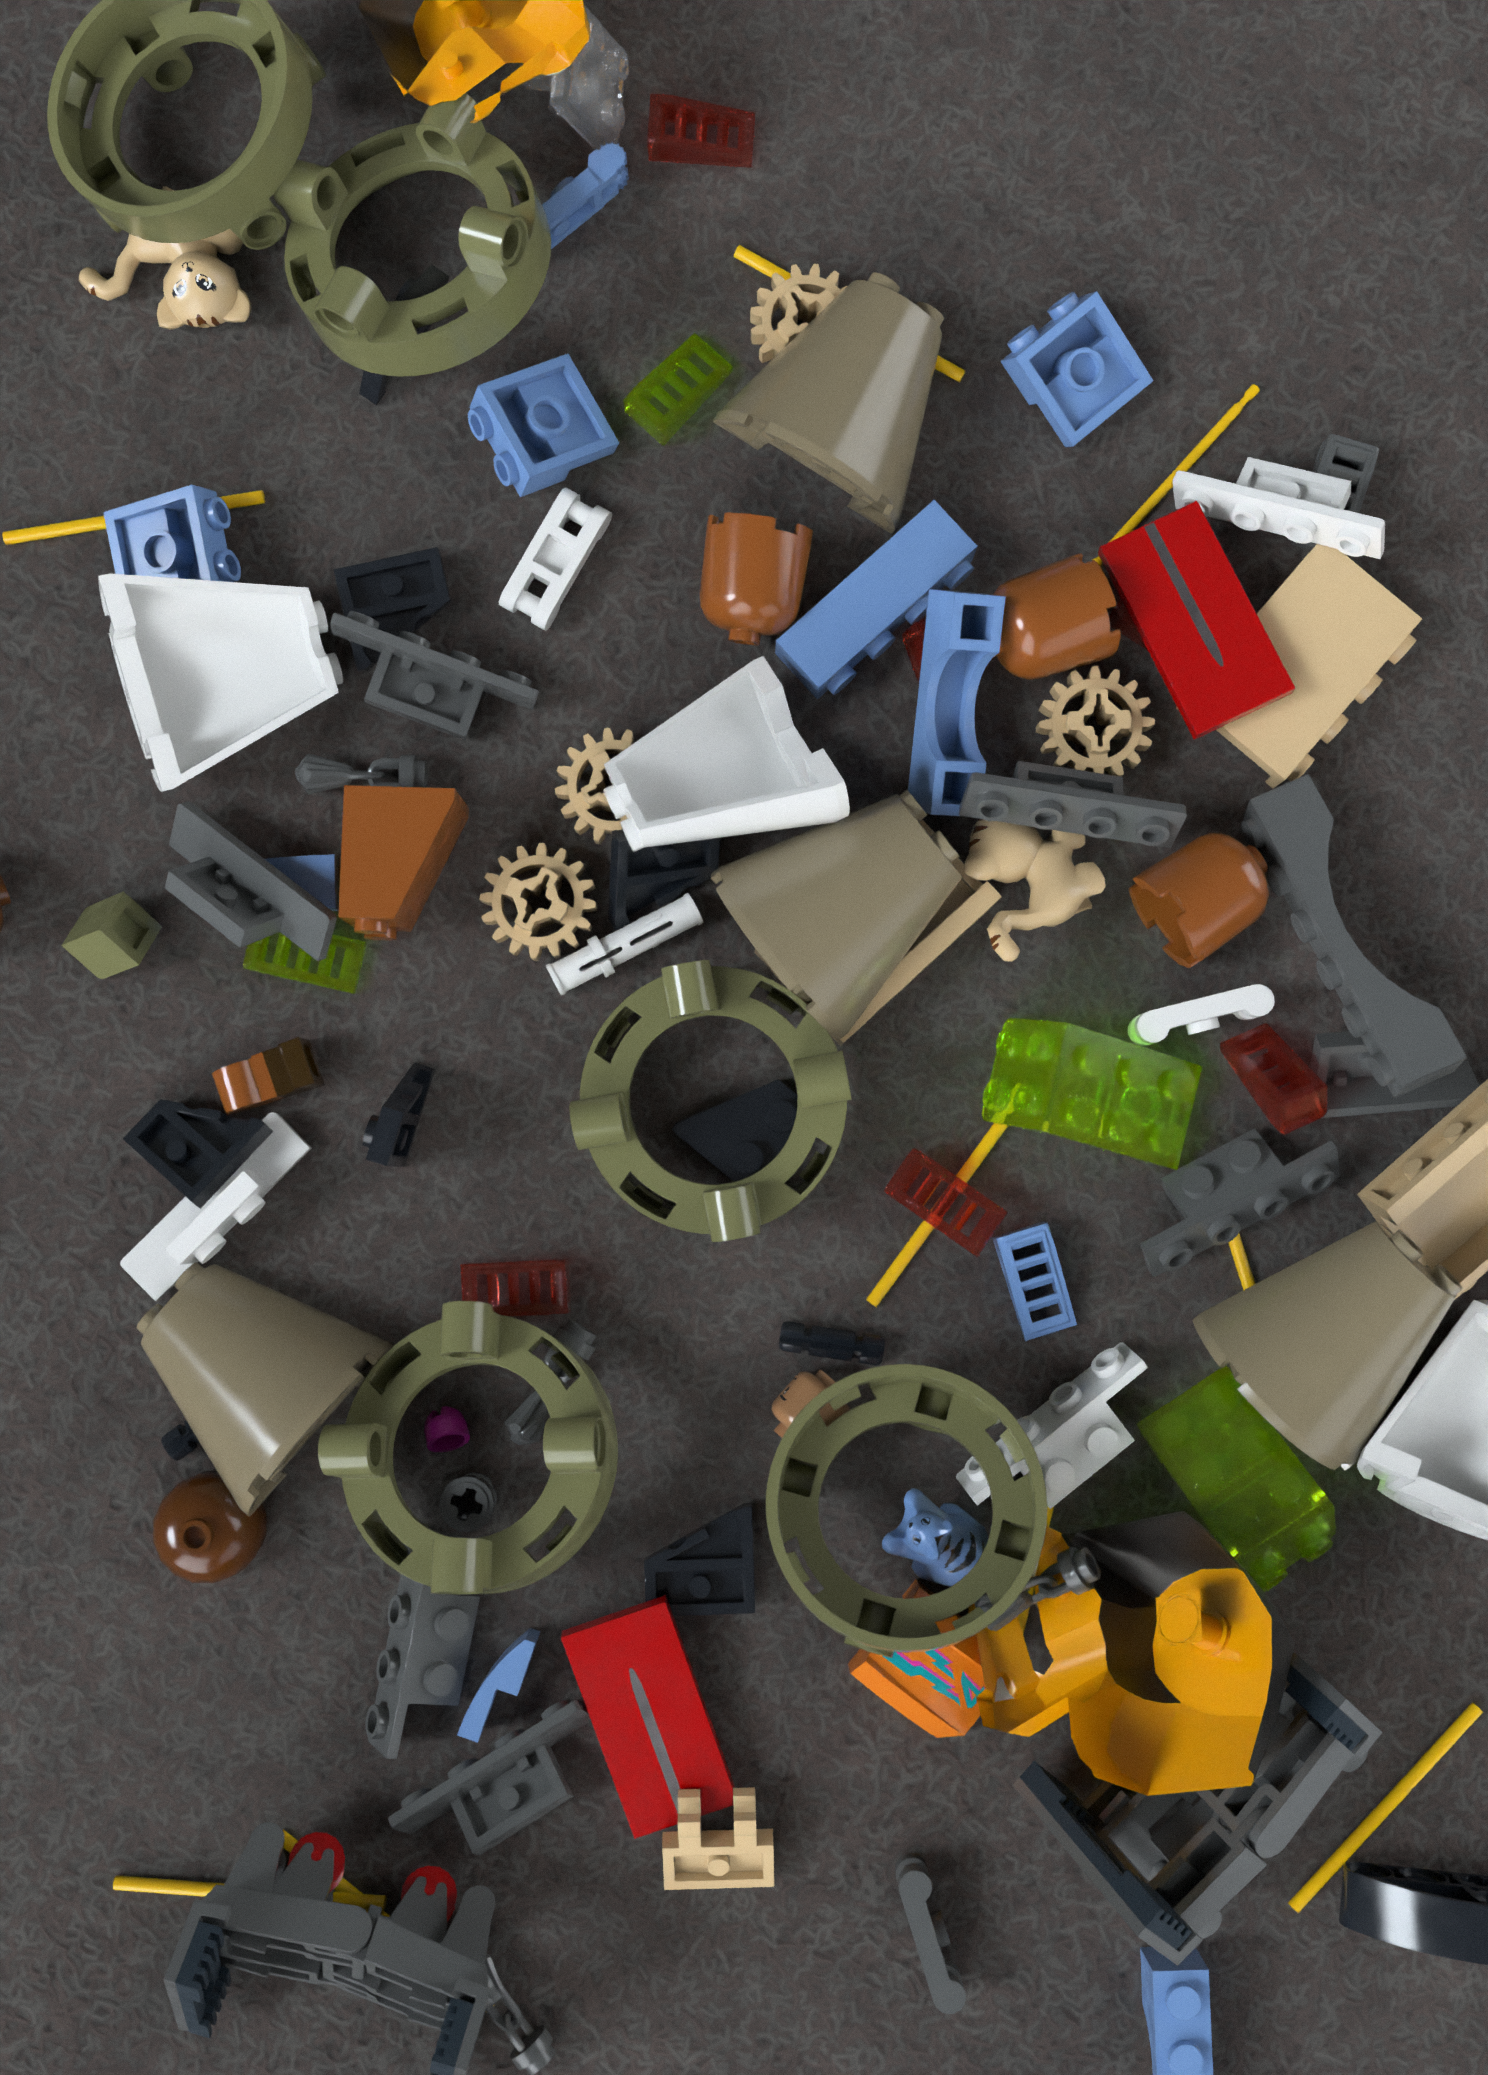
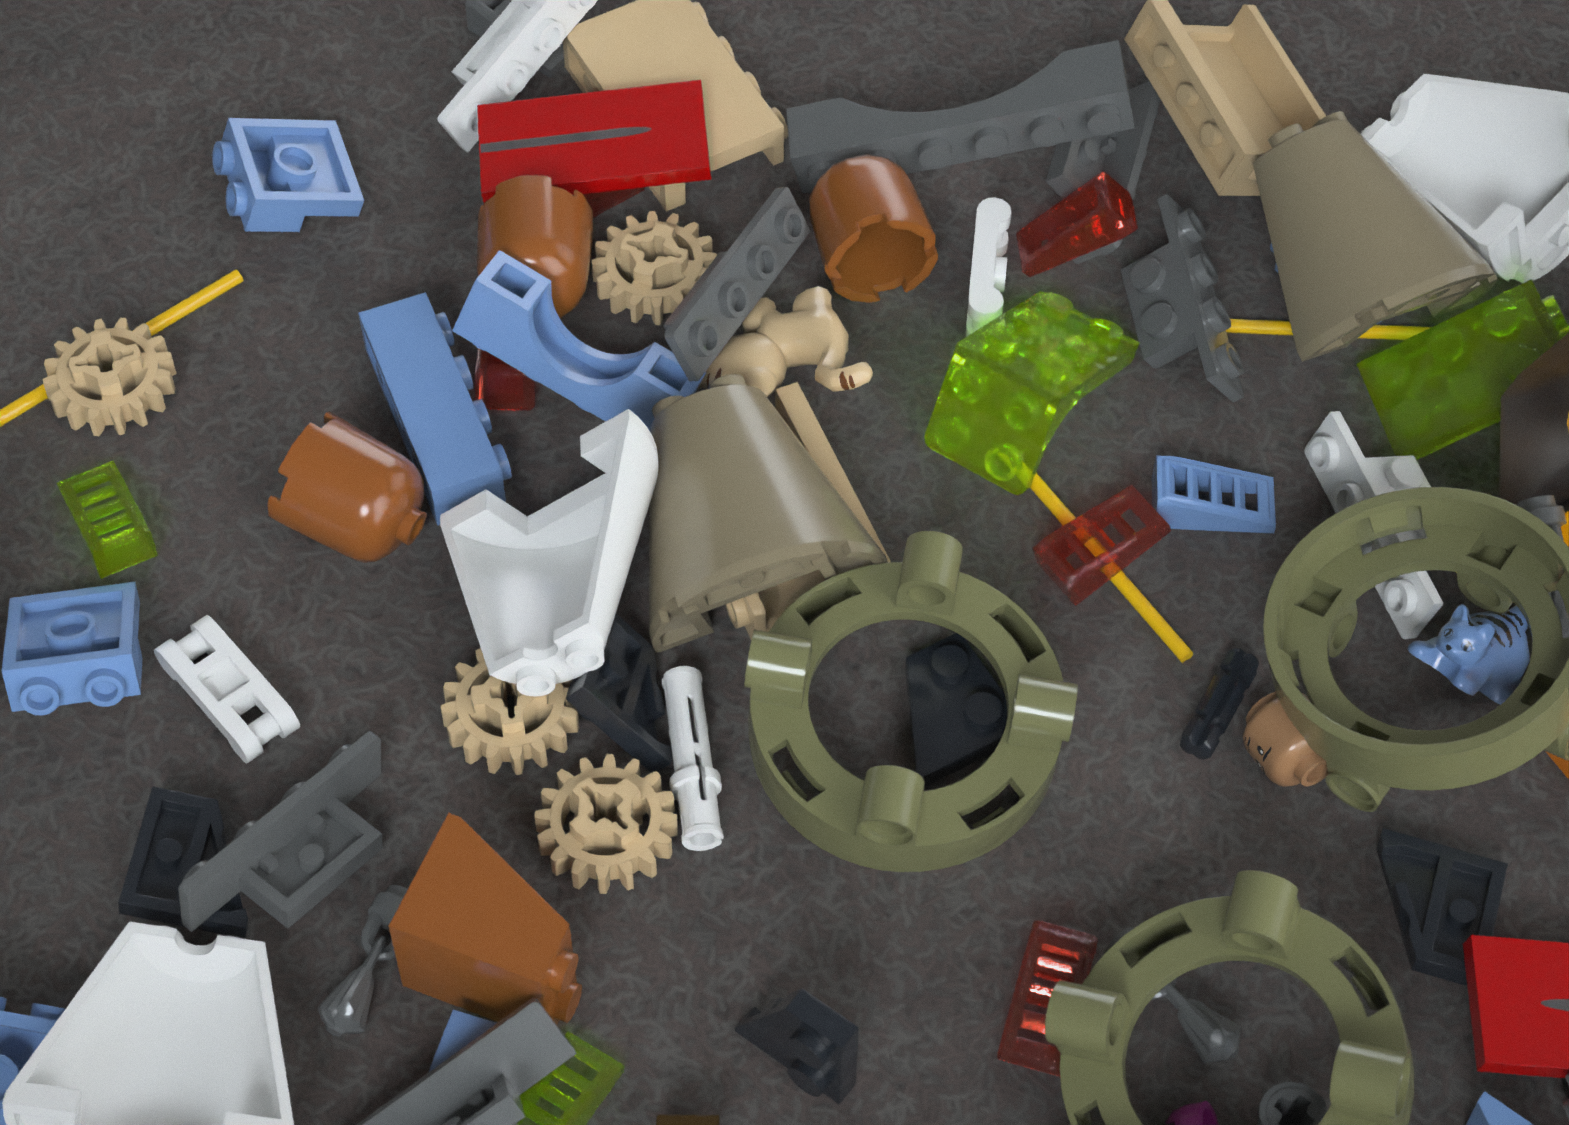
camera: 70 degrees left, 30 degrees down
(849, 395) = (208, 343): dark tan cone -> none
(1185, 465) = (431, 134): yellow piece -> none

